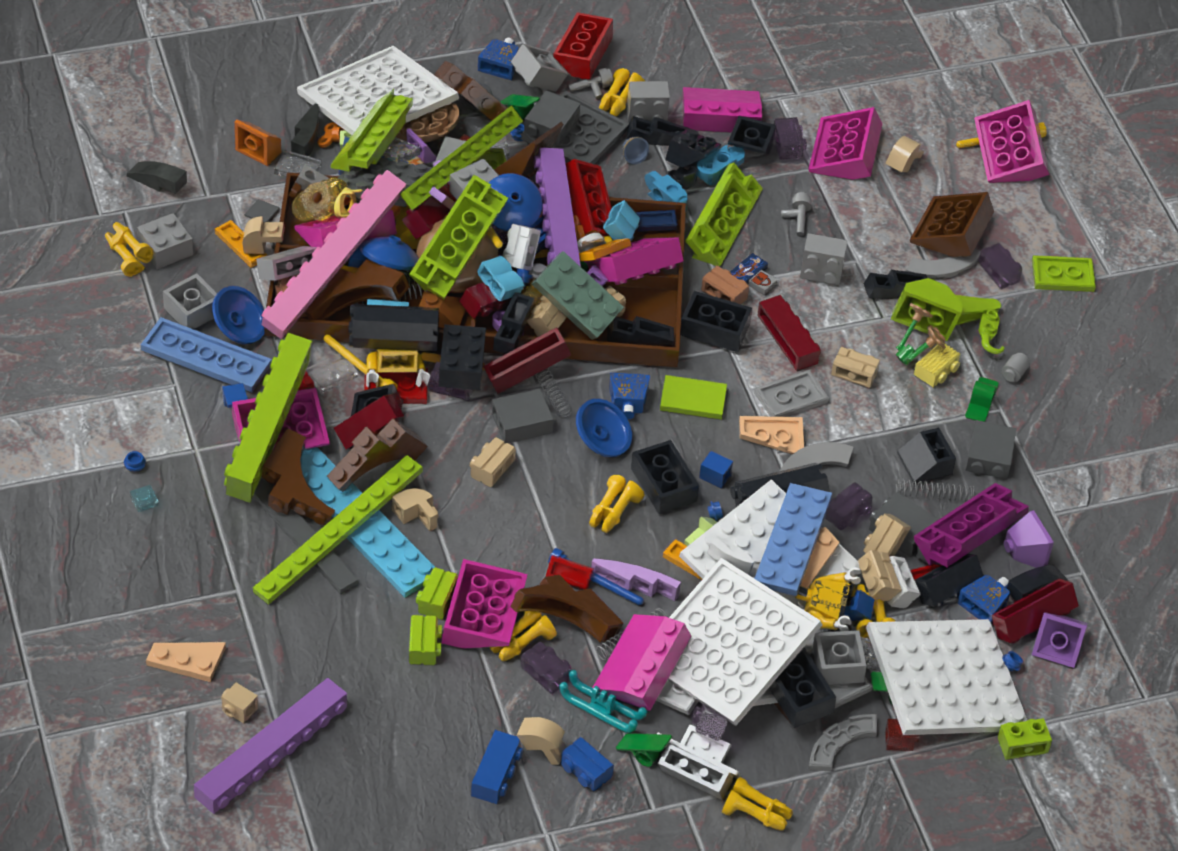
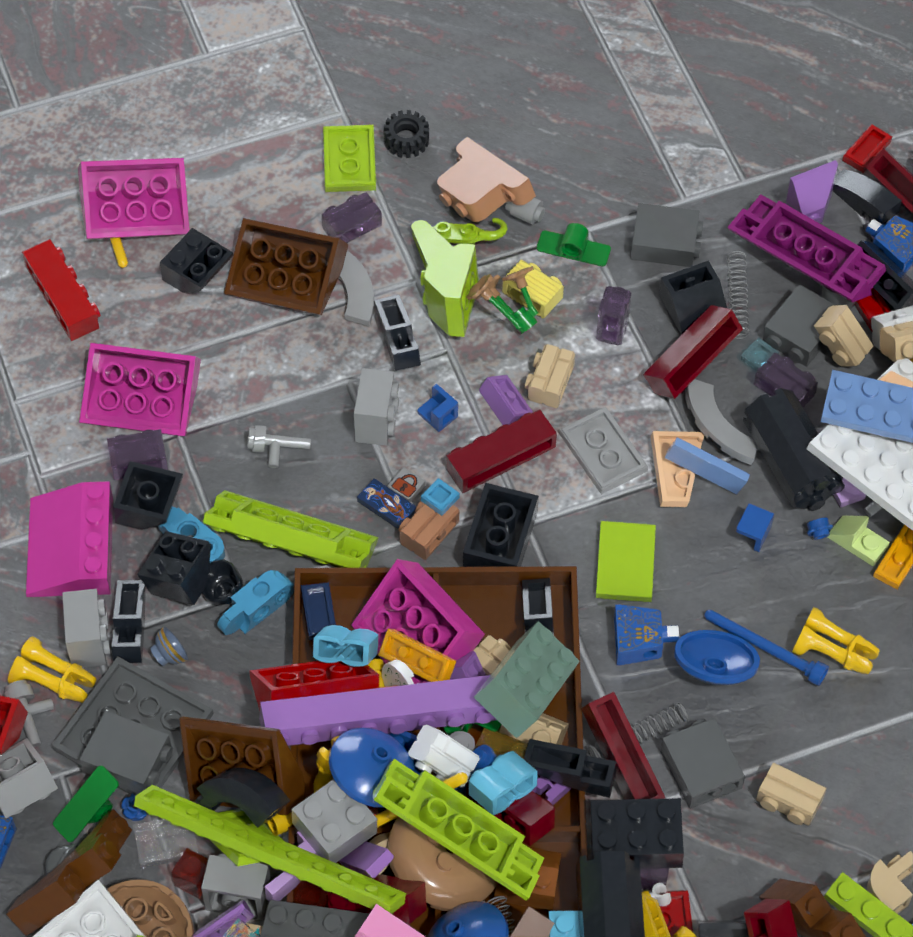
camera: 90 degrees left, 10 degrees up
(503, 150) = (248, 790): none -> black arch
(592, 491) = (814, 671): none -> blue piece
(664, 476) = (785, 582): black brick -> none
(743, 285) = (440, 497): none -> dark azure tile
(768, 442) = (707, 465): none -> medium blue tile
(827, 304) = (440, 409): none -> blue panel
(831, 345) = (504, 399): none -> medium lavender slope
(874, 447) = (693, 351): none -> dark red brick
(878, 493) = (757, 354): none -> clear light blue plate
(904, 153) = (161, 317): tan brick -> none
(906, 401) = (613, 315): none -> clear purple brick
(931, 107) = (61, 289): none -> red brick
(956, 172) = (193, 262): none -> black slope
(1035, 336) = (482, 183): none -> brick
(1086, 313) = (406, 145): none -> black tyre
(1093, 598) = (867, 148): none -> red tile

